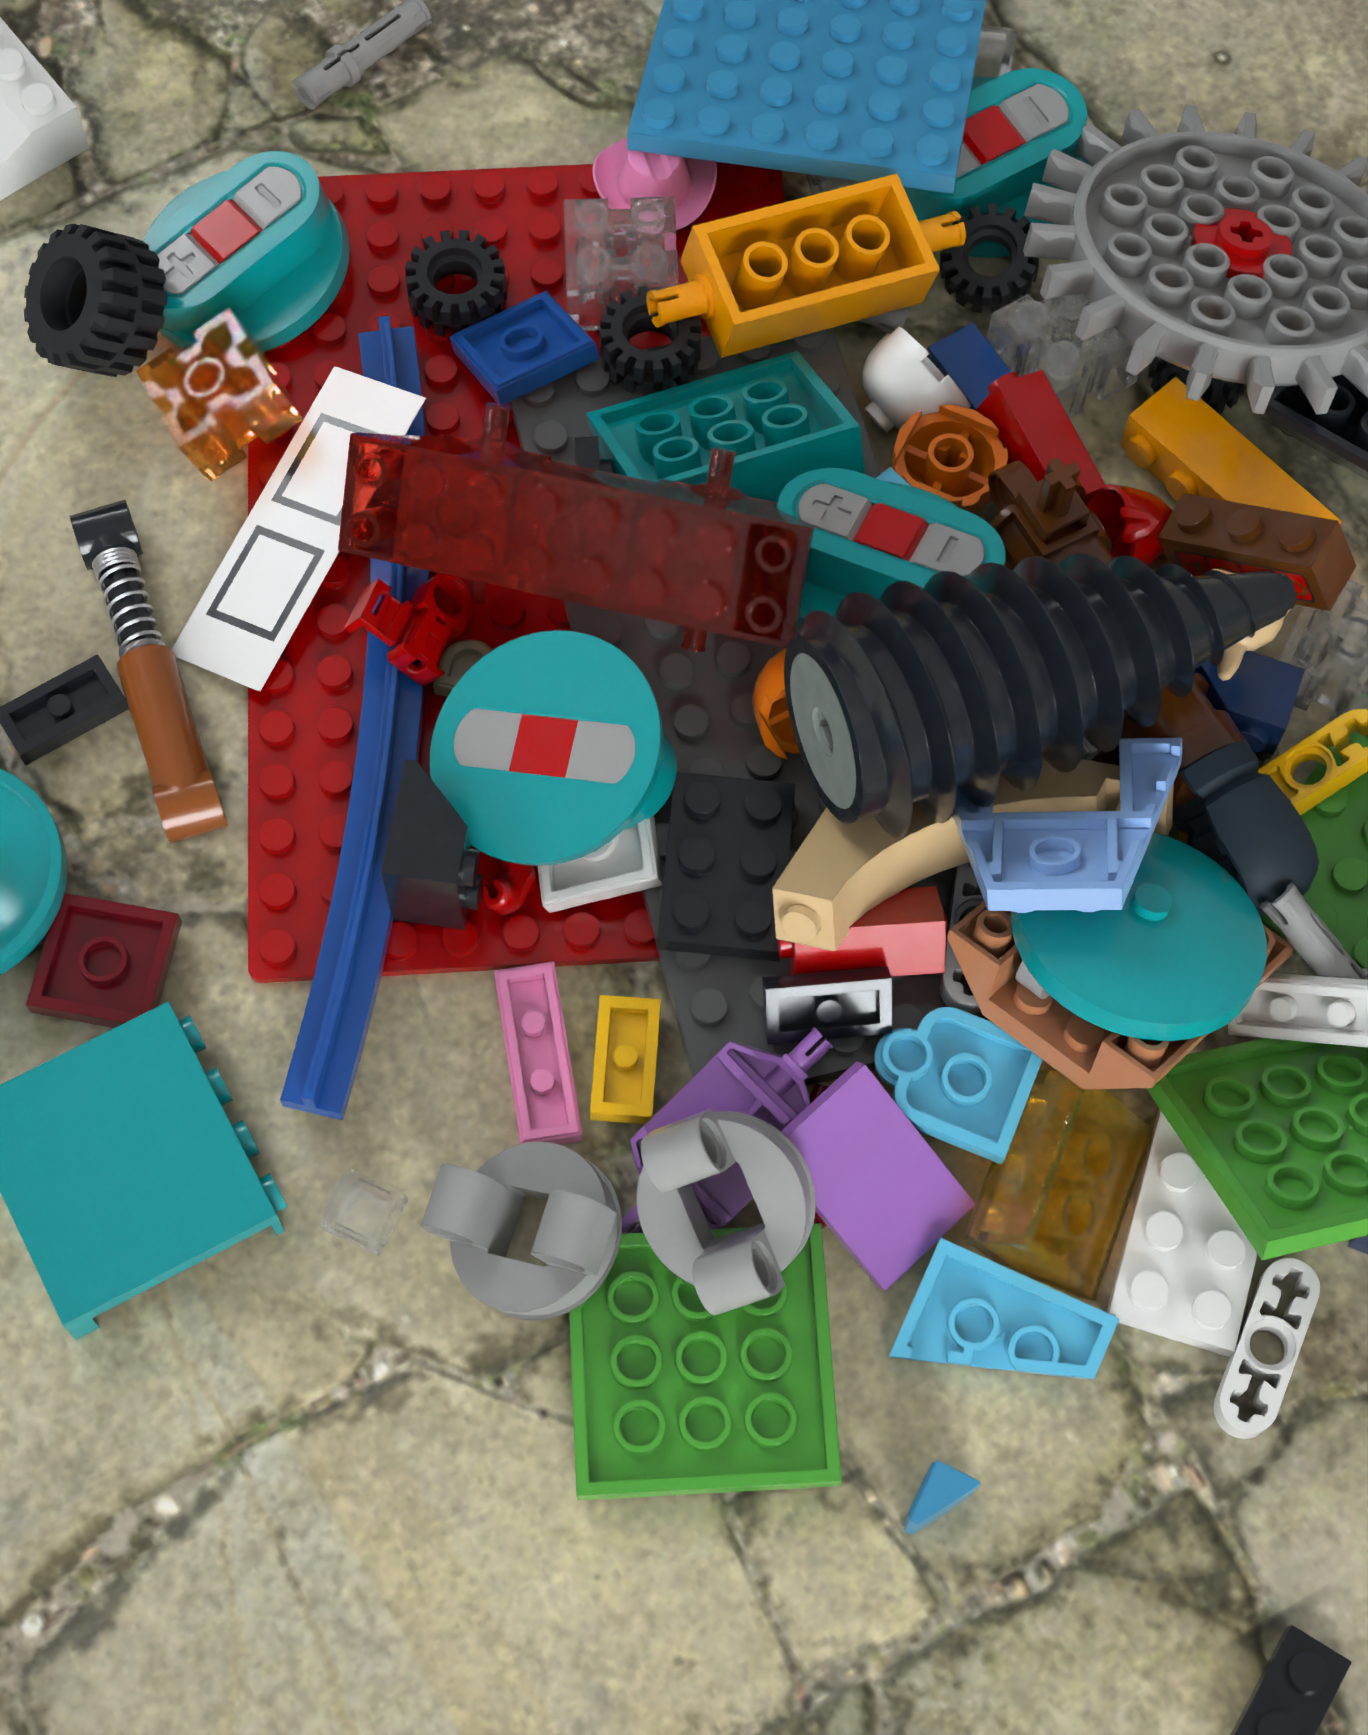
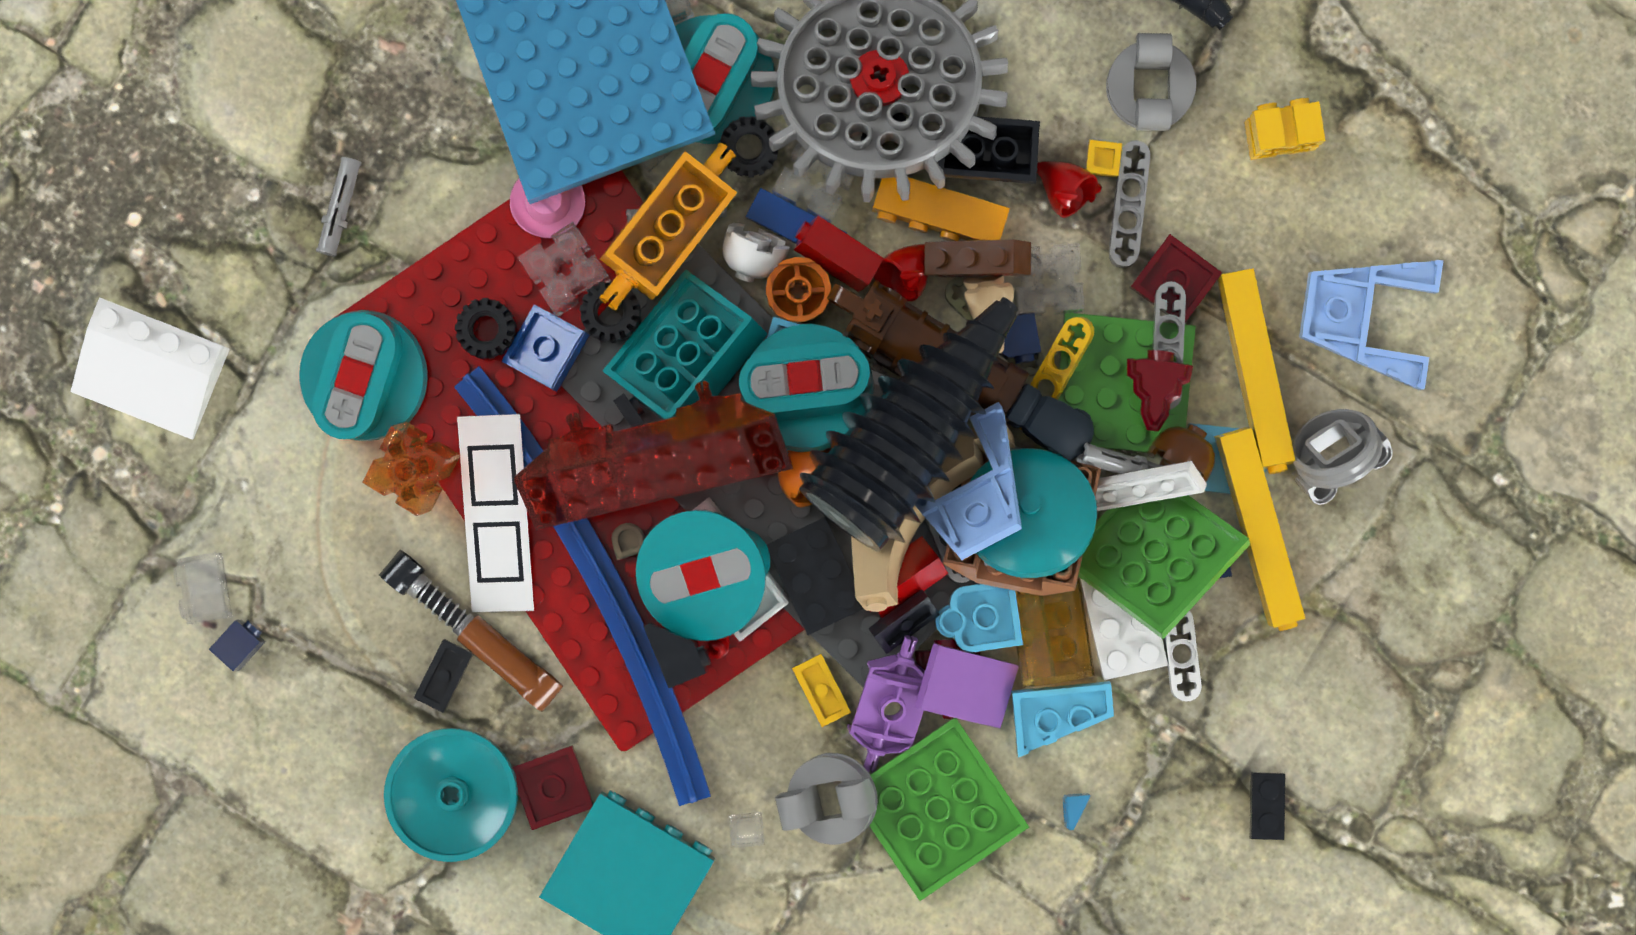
camera: 30 degrees left, 20 degrees up
(95, 300) = (314, 456): black tyre -> none
(416, 626) = (597, 544): red piece -> none
(538, 1054) = (778, 710): bright pink tile -> none
(745, 1263) = (933, 766): light grey piece -> none

